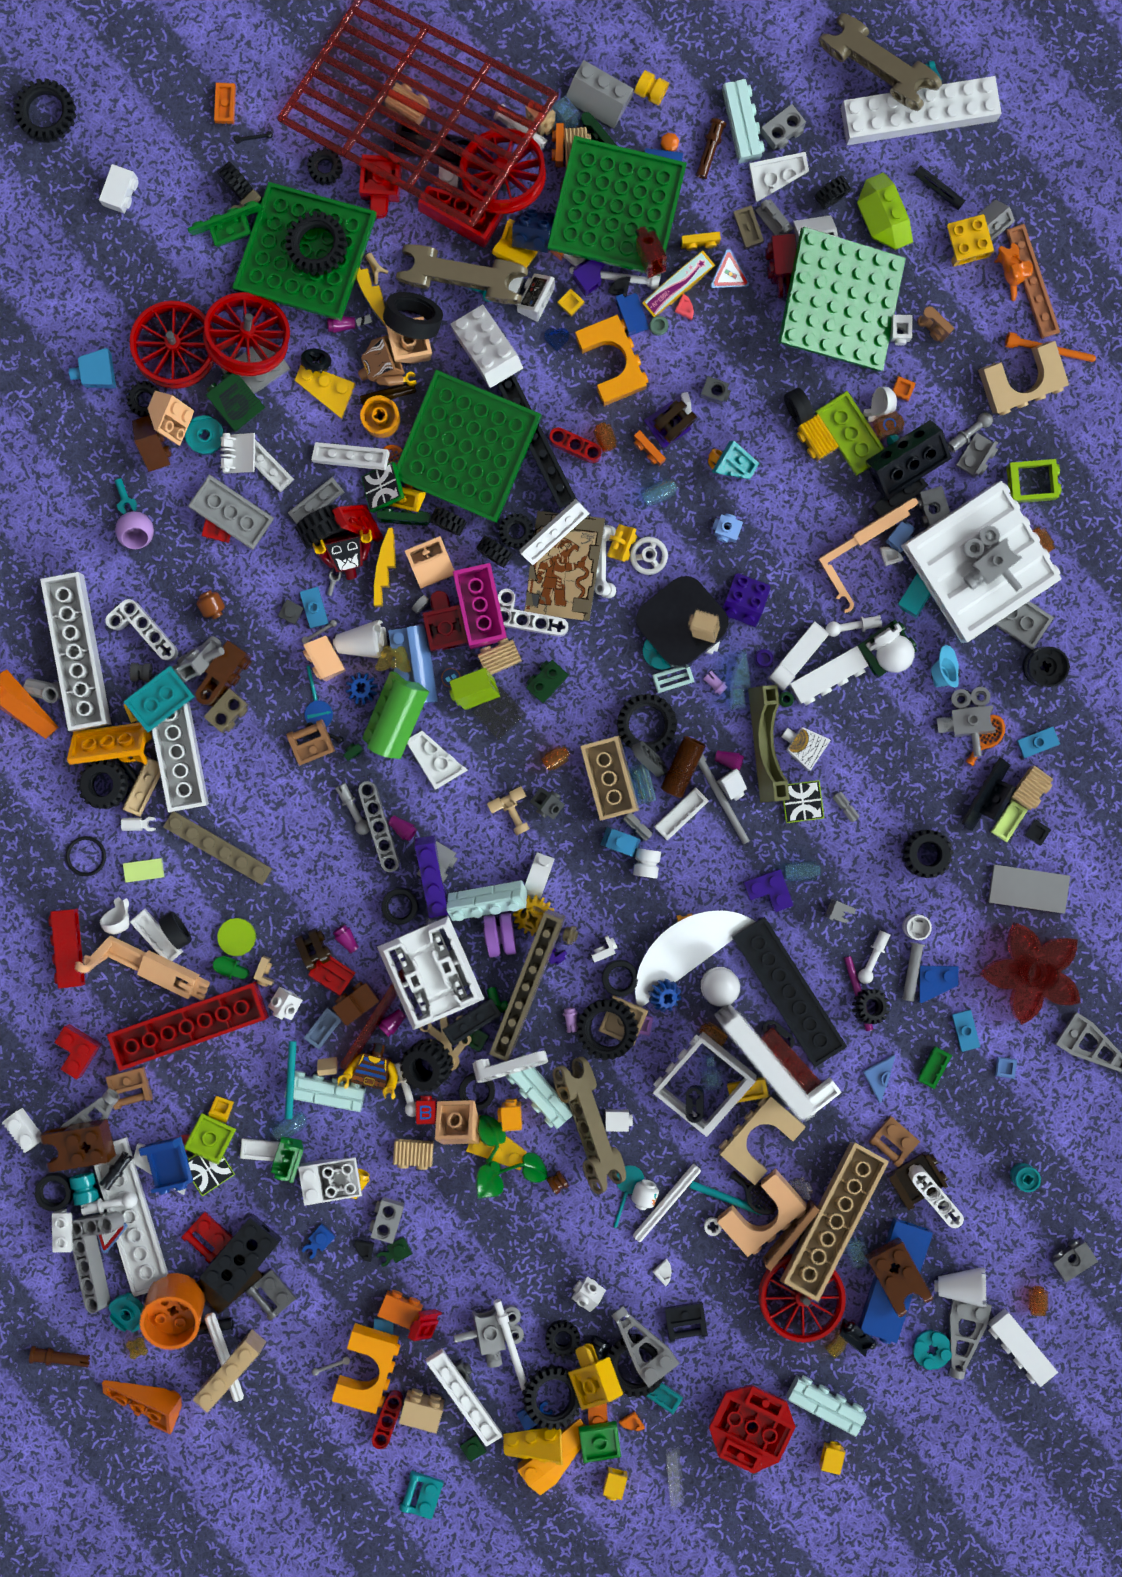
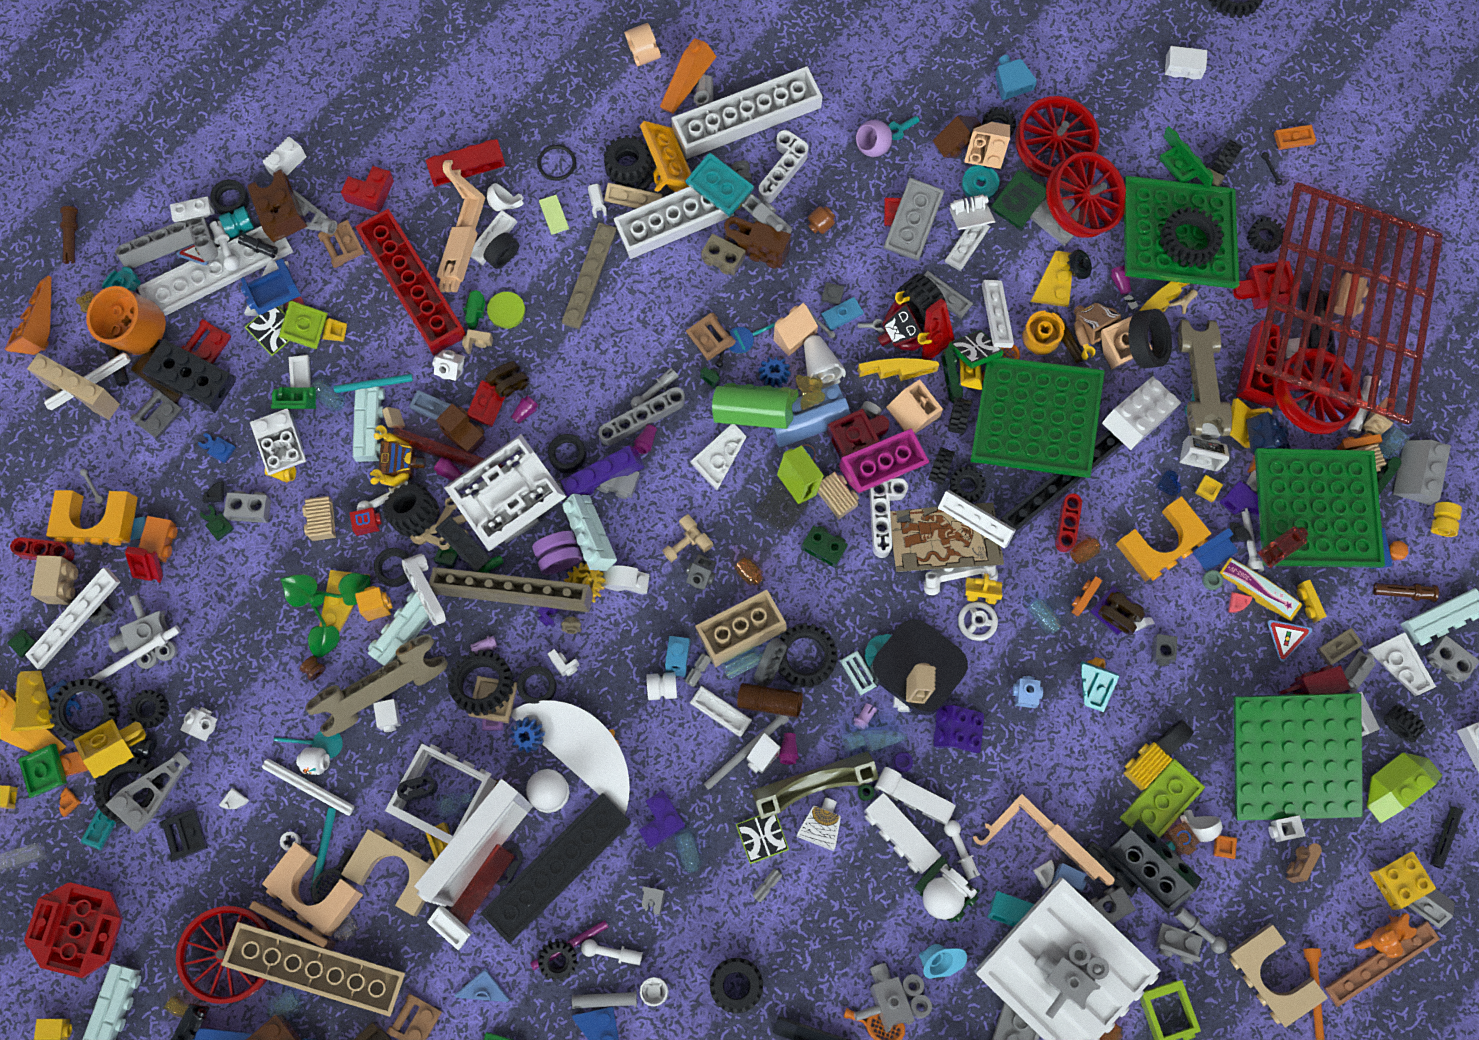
camera: 75 degrees right, 15 degrees down
(457, 1122) = (357, 551): light nougat slope -> none

